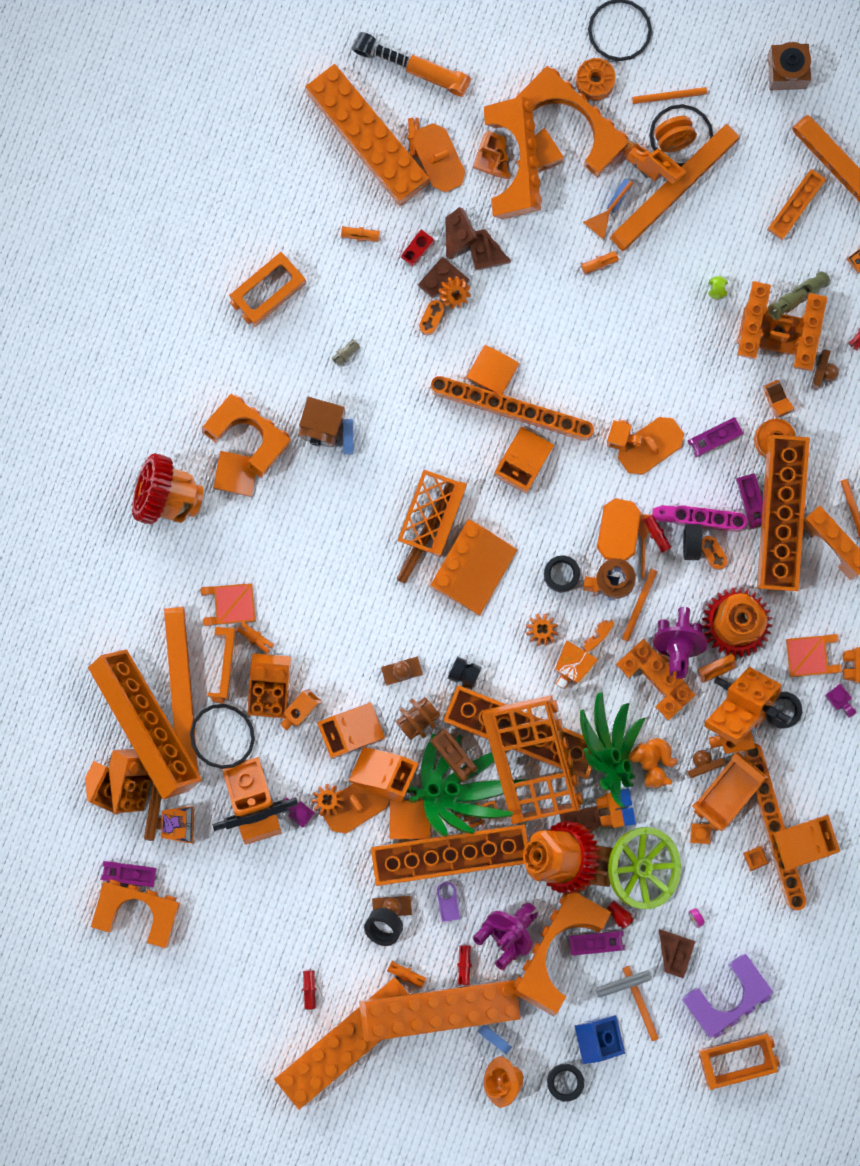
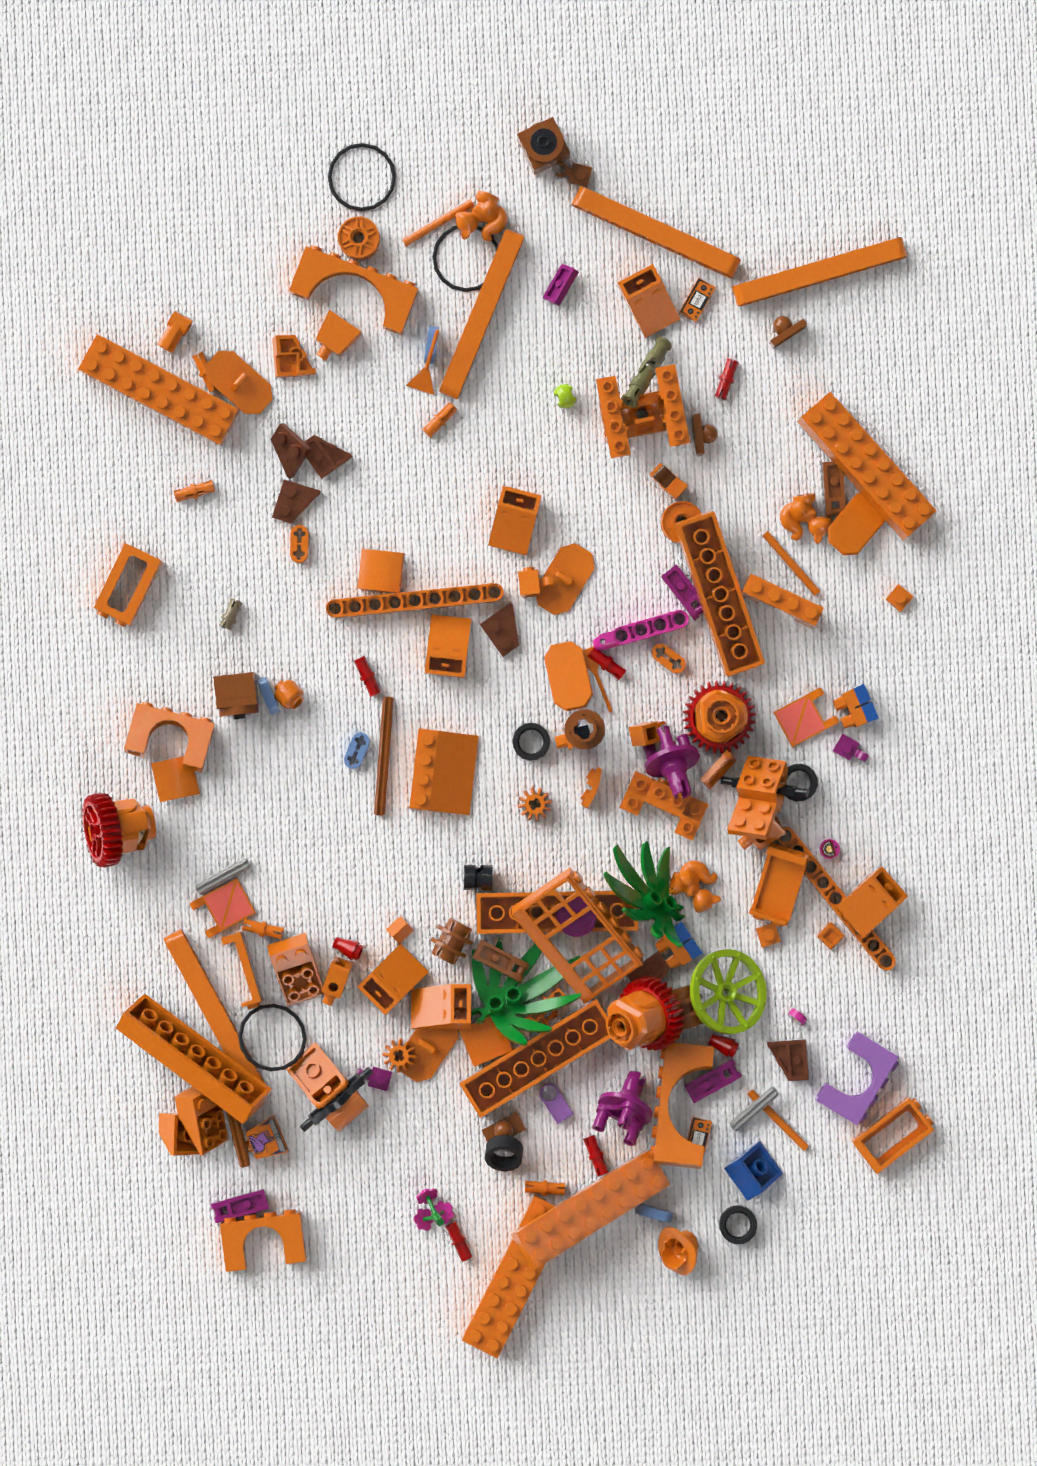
camera: 20 degrees left, 5 degrees up
(238, 577) = (222, 876): none -> light grey axle
(303, 957) = (440, 1213): none -> dark pink plant
(323, 686) = (349, 948): none -> red cone
(366, 442) = (288, 694): none -> orange head
(375, 690) = (400, 929): none -> orange slope
(401, 514) = (361, 752): none -> medium blue beam
(401, 671) = (417, 900): dark orange tile -> none
(406, 89) = (176, 328): none -> orange piece
(417, 248) = (256, 481): red leg -> none
(442, 456) = (367, 676): none -> red pin
(448, 517) = (399, 736): orange fence -> none
(454, 82) = (221, 300): piece -> none
(459, 297) = (314, 504): orange gear -> none
(524, 193) = (336, 385): orange arch -> none
(538, 752) = (580, 926): none -> magenta tile
(566, 982) = (699, 1131): none -> tile
(573, 664) = (579, 825): orange torso -> none
(577, 466) = (502, 630): none -> copper wing
(629, 375) = (514, 520): none -> orange slope
(639, 605) = (618, 739): orange bar -> none
(653, 164) = (450, 301): orange plate -> none
(665, 608) = (645, 733): none -> orange brick
(675, 134) = (460, 262): orange wheel -> none
(692, 542) = (643, 658): black tyre -> none
(702, 760) = (743, 866): dark orange tile -> none
(716, 101) = (485, 211): none -> orange animal
(716, 436) = (624, 544): magenta plate -> none
(754, 191) = (560, 284): none -> magenta plate
(786, 780) = (829, 848): none -> tile
(796, 204) = (607, 280): orange plate -> none
(807, 105) = (578, 174): none -> dark orange plate
(825, 236) = (648, 300): none -> orange slope

